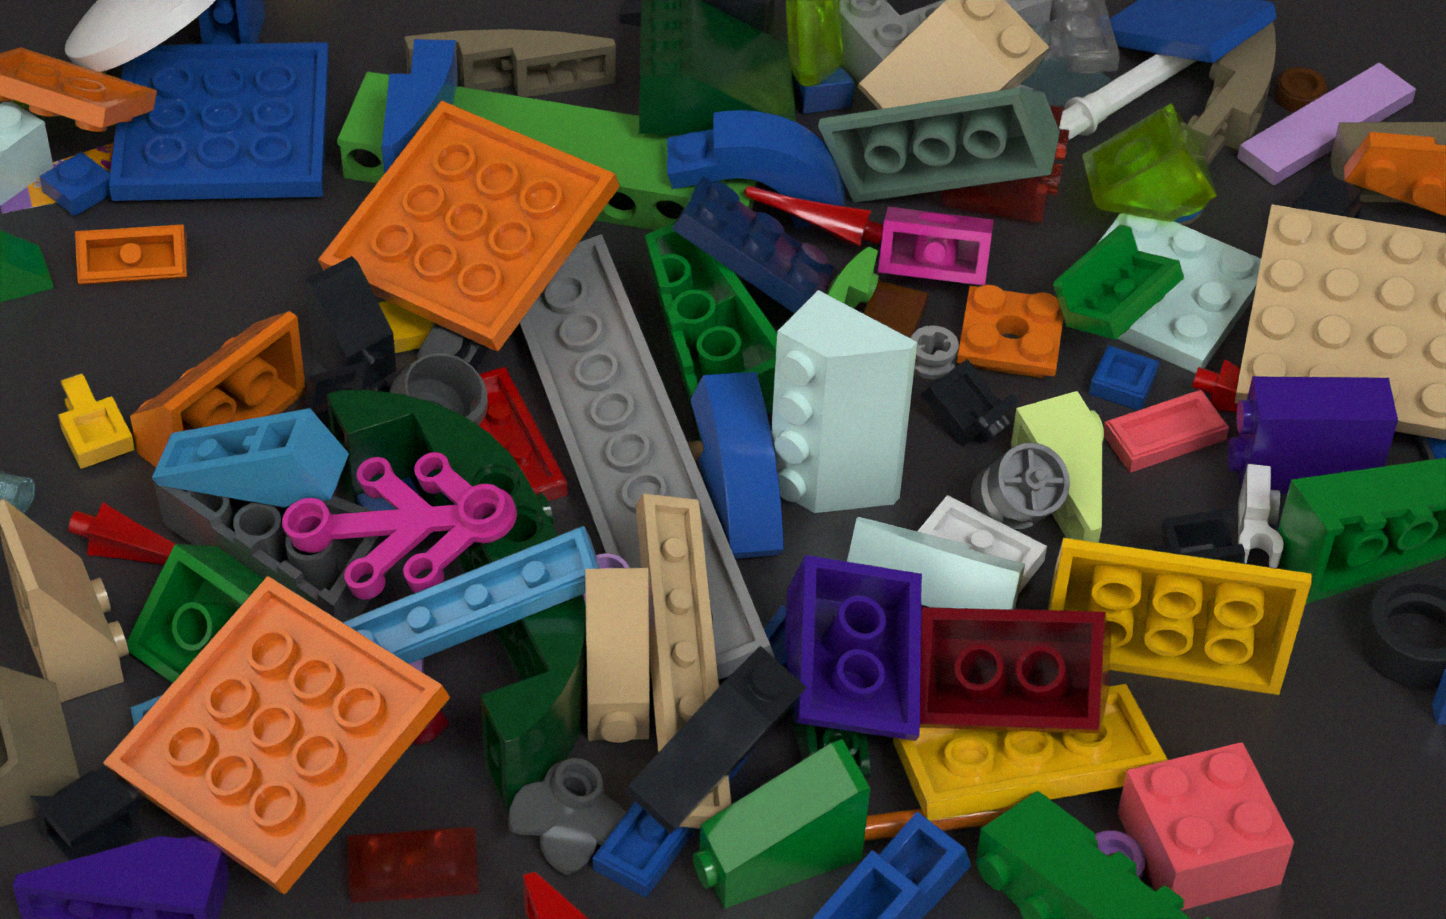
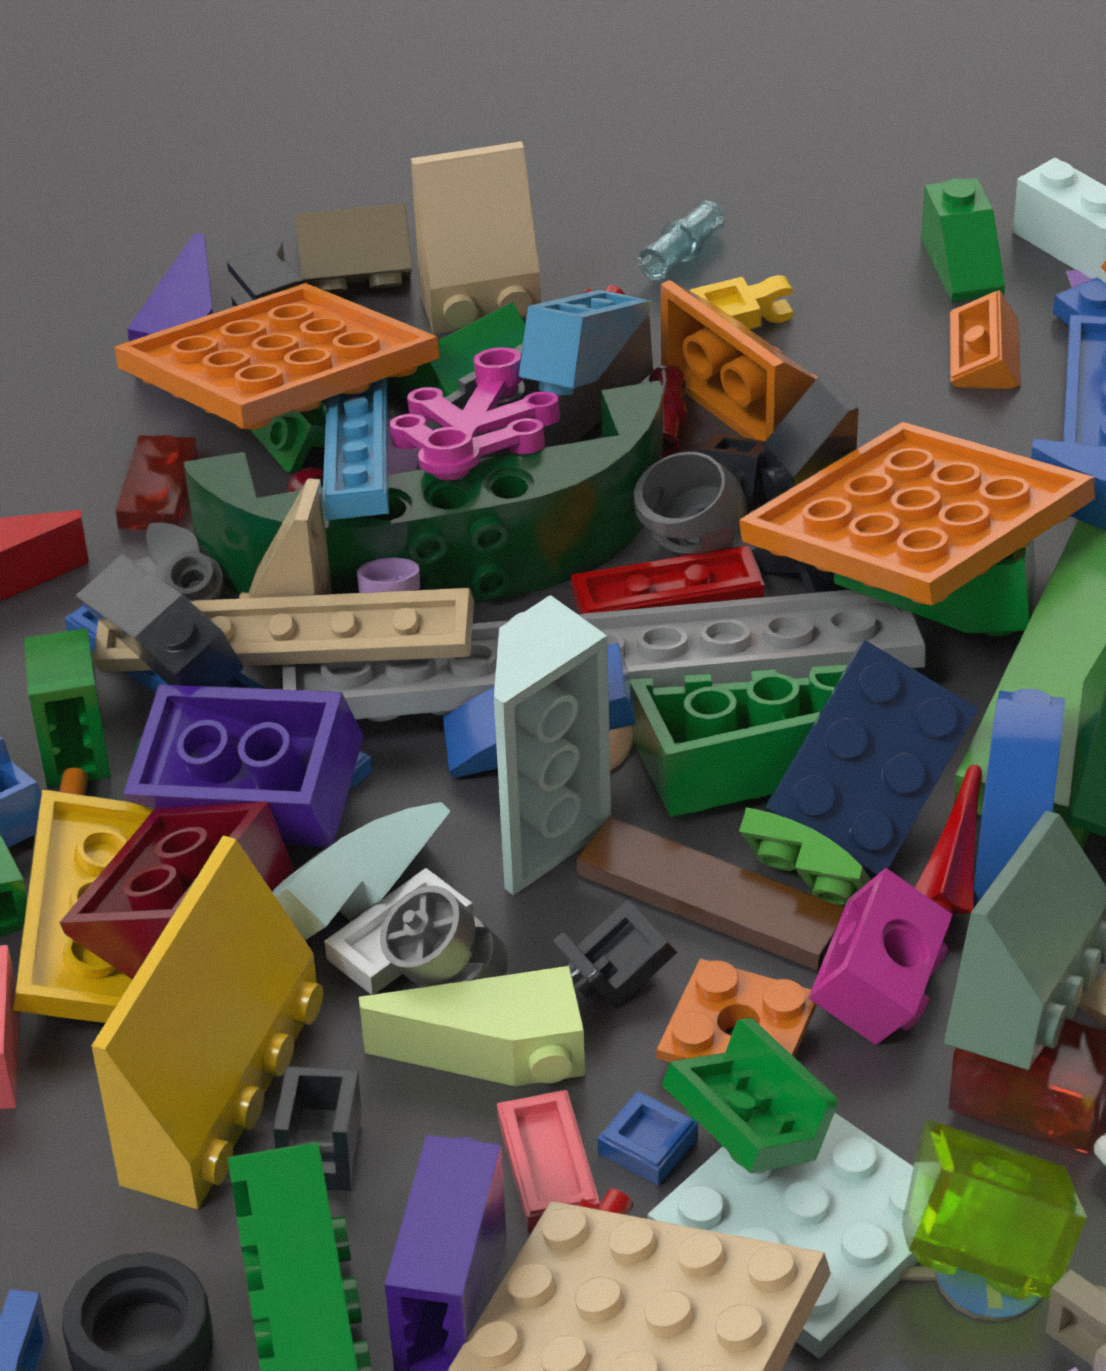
camera: 105 degrees right, 5 degrees down
(945, 357) = (722, 933): light grey bush -> none
(1256, 510) = (368, 1195): white plate -> none

